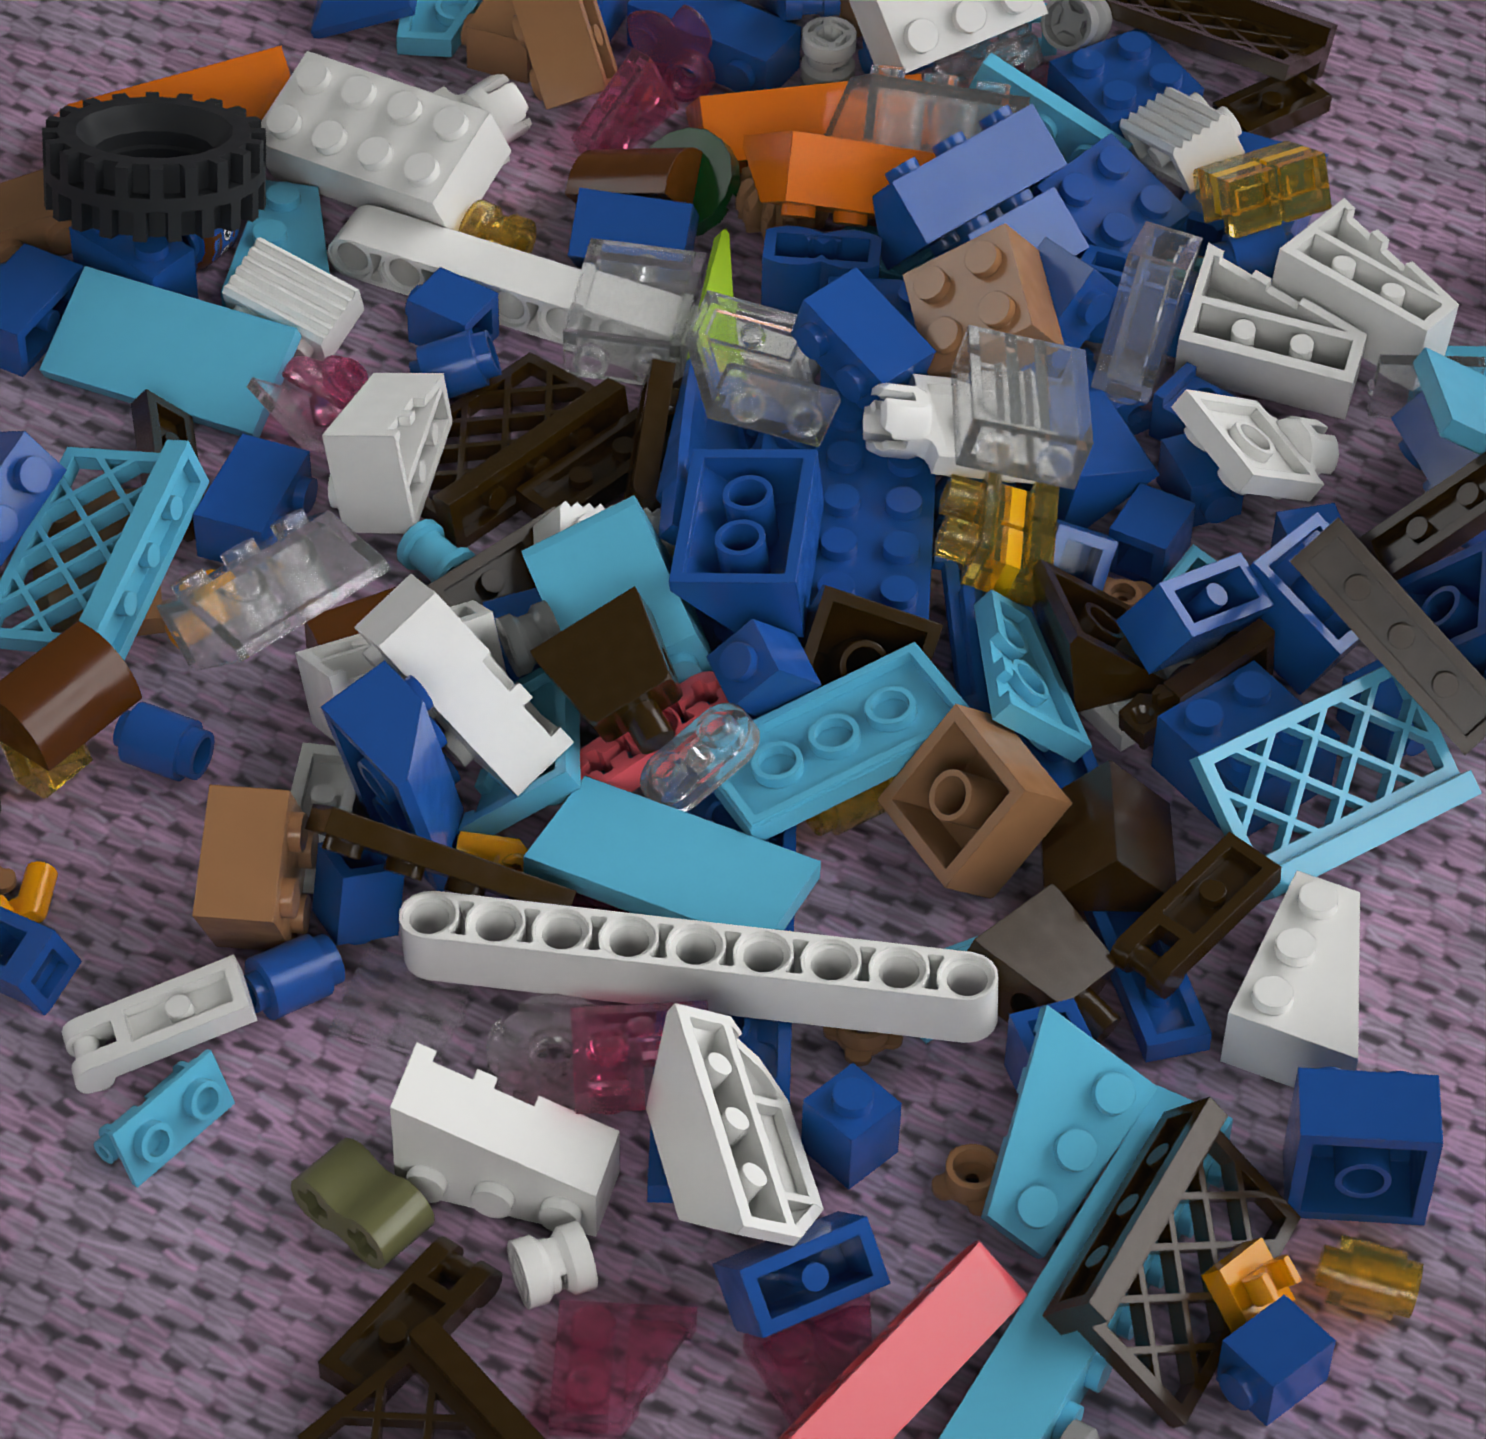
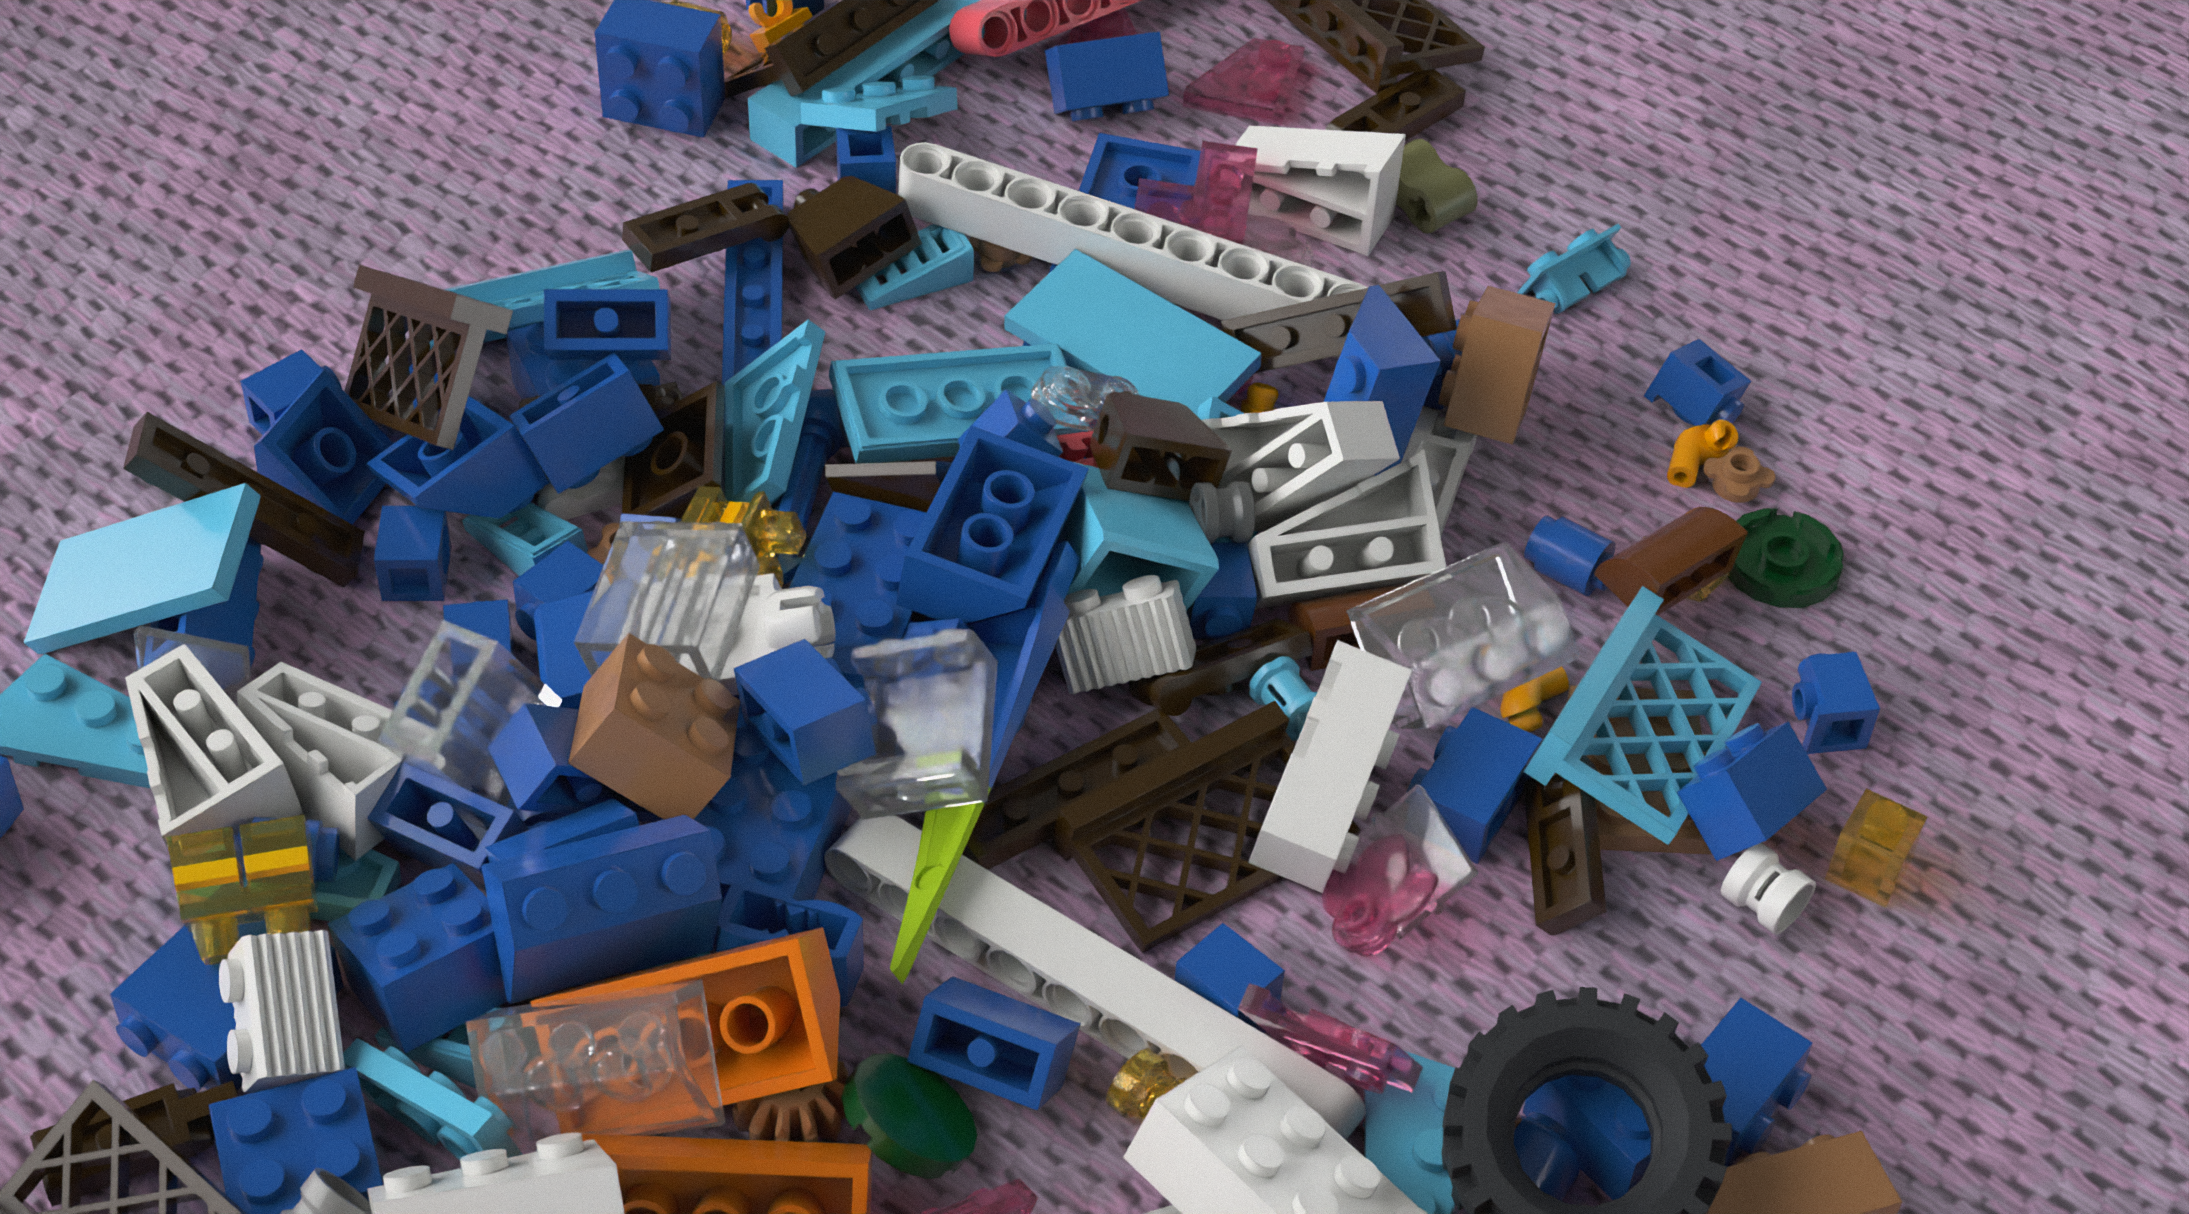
camera: 170 degrees left, 0 degrees up
(157, 1023) = (1593, 315): white plate -> none
(187, 351) = (1520, 957): medium azure tile -> none
(295, 294) = (1413, 1006): white brick -> none
(366, 251) = (1327, 1041): none -> clear pink wing
(464, 358) = (1242, 902): blue brick -> none
(552, 1264) = (1298, 113): white wheel -> none
(630, 309) = (1020, 918): clear panel -> none
(637, 171) = (974, 1110): reddish brown brick -> none
(649, 443) = (1049, 733): dark brown plate -> none
(727, 1133) = (1138, 108): white wedge -> none
(850, 1125) = (1040, 151): blue brick -> none
(963, 1163) = (955, 133): medium nougat plate -> none
(974, 802) = (852, 309): medium nougat brick -> none
(1110, 844) = (751, 295): dark brown slope -> none
(1215, 671) = (605, 321): none -> blue brick
(1256, 449) = (440, 580): white plate -> none
(1301, 987) = (638, 174): white wedge -> none

